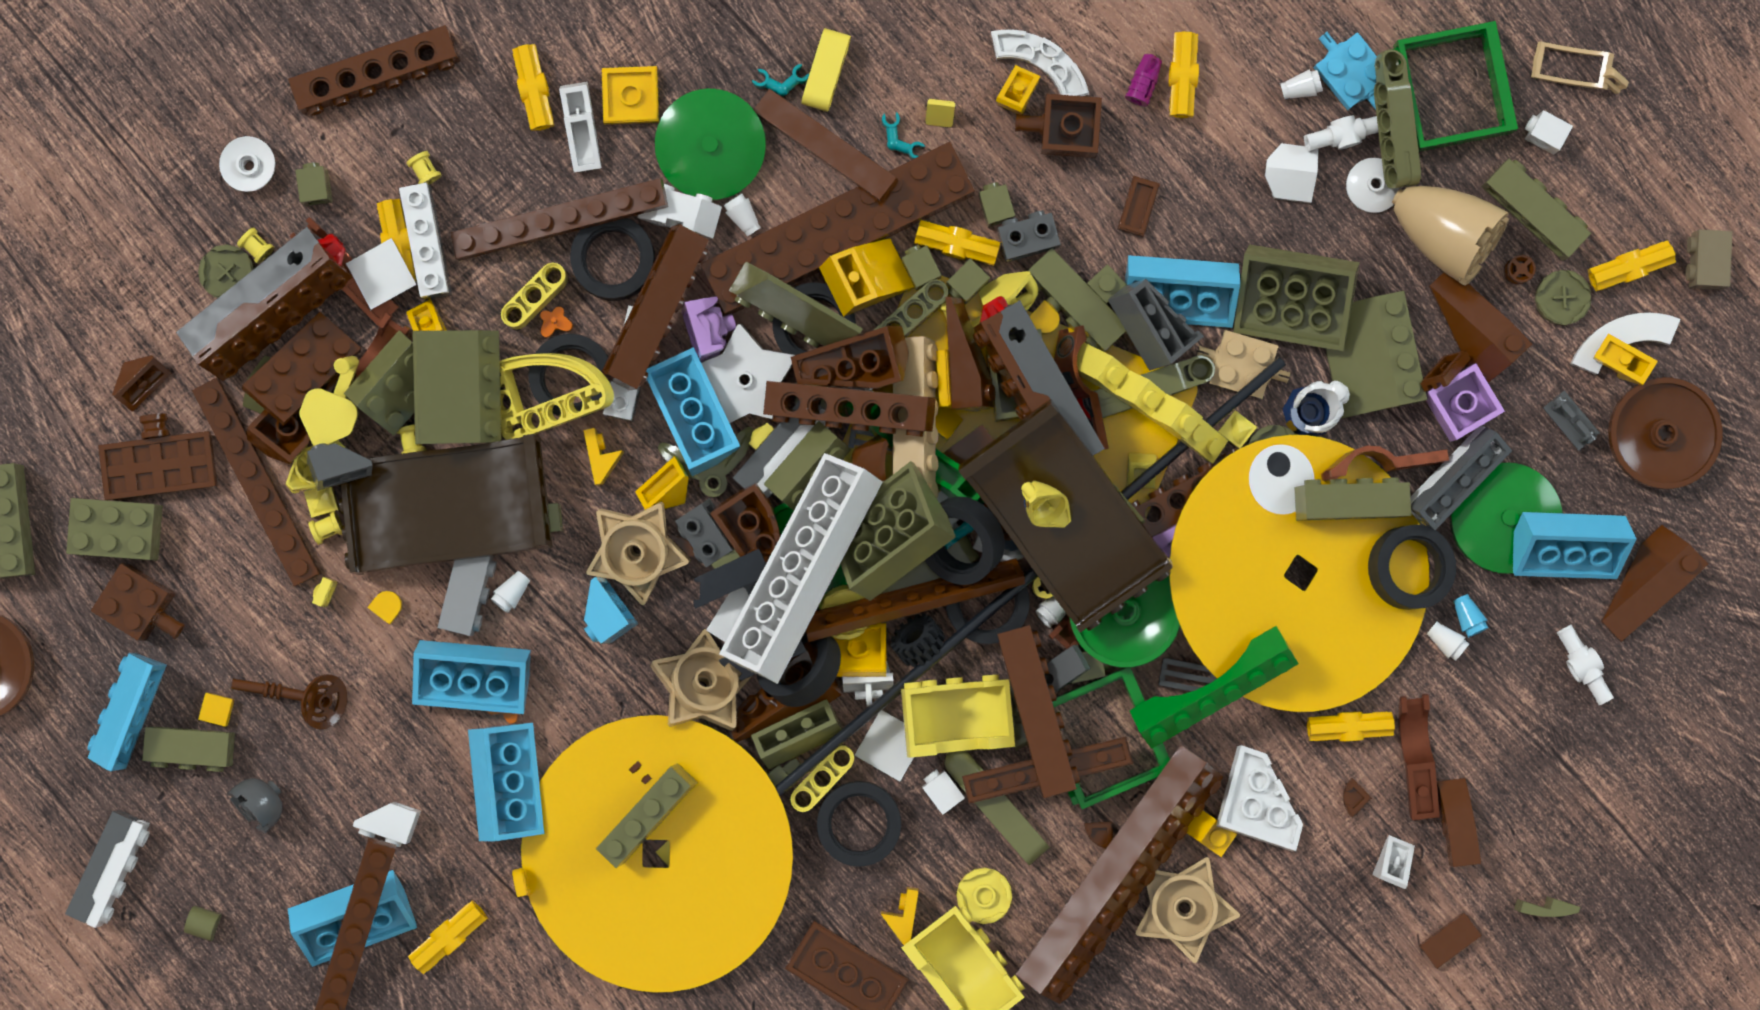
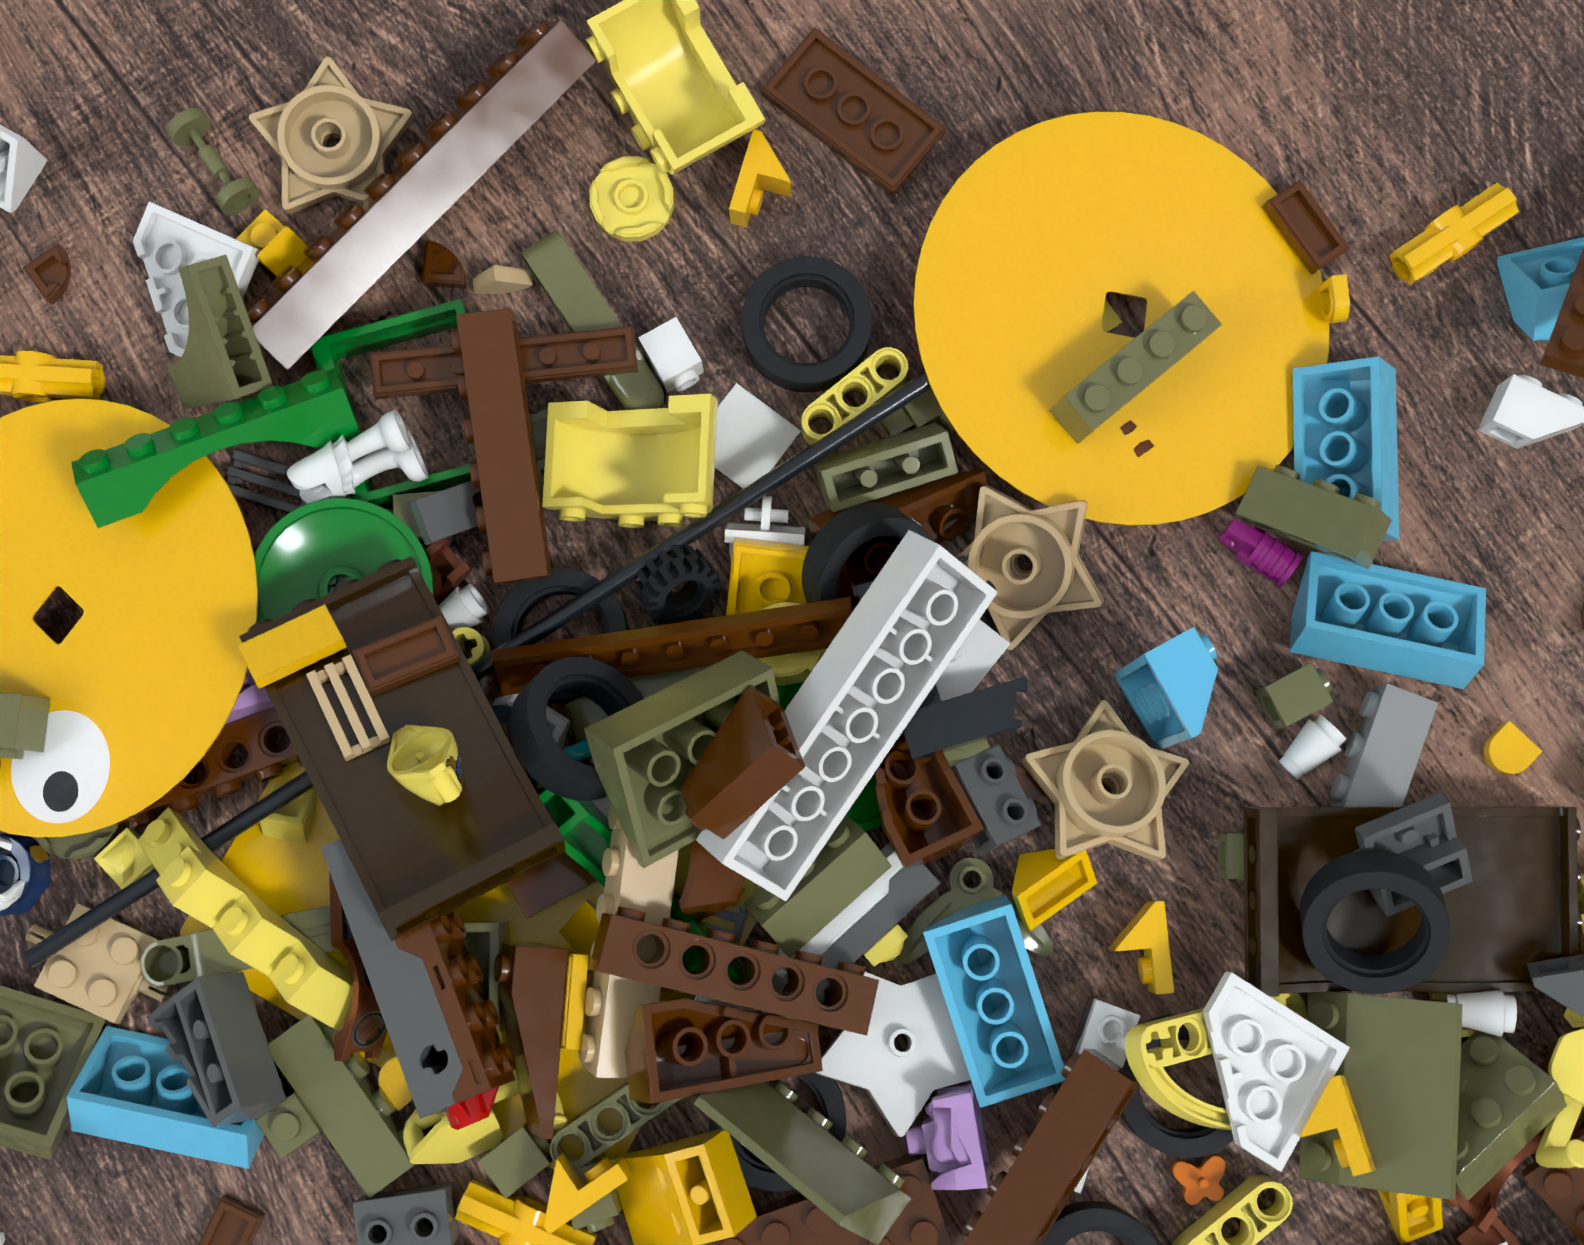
camera: 170 degrees left, 5 degrees down
(397, 442) = (1487, 1011): none -> white cone
(450, 529) = (1425, 835): none -> dark grey brick
(471, 514) = (1377, 972): none -> black tyre
(482, 371) = (1337, 1111): none -> yellow slope
(524, 622) = (1295, 695): none -> olive brick
(525, 735) = (1315, 515): none -> olive brick
(526, 392) = (1267, 1067): none -> white plate
(543, 930) = (1305, 227): none -> reddish brown tile
(553, 711) = (1261, 551): none -> magenta hinge
(859, 528) = (742, 765): none -> reddish brown slope
(930, 265) = (572, 1196): none -> yellow slope
(1060, 829) = (502, 280): none -> tan tile
(1070, 569) = (406, 655): none -> reddish brown tile
(1112, 552) = (332, 673): none -> tan tile
(1138, 685) = (334, 474): none -> white piece
(1139, 565) = (291, 646): none -> yellow tile
(1220, 748) = (221, 347): none -> olive arch
(1280, 904) = (189, 128): none -> olive wheel

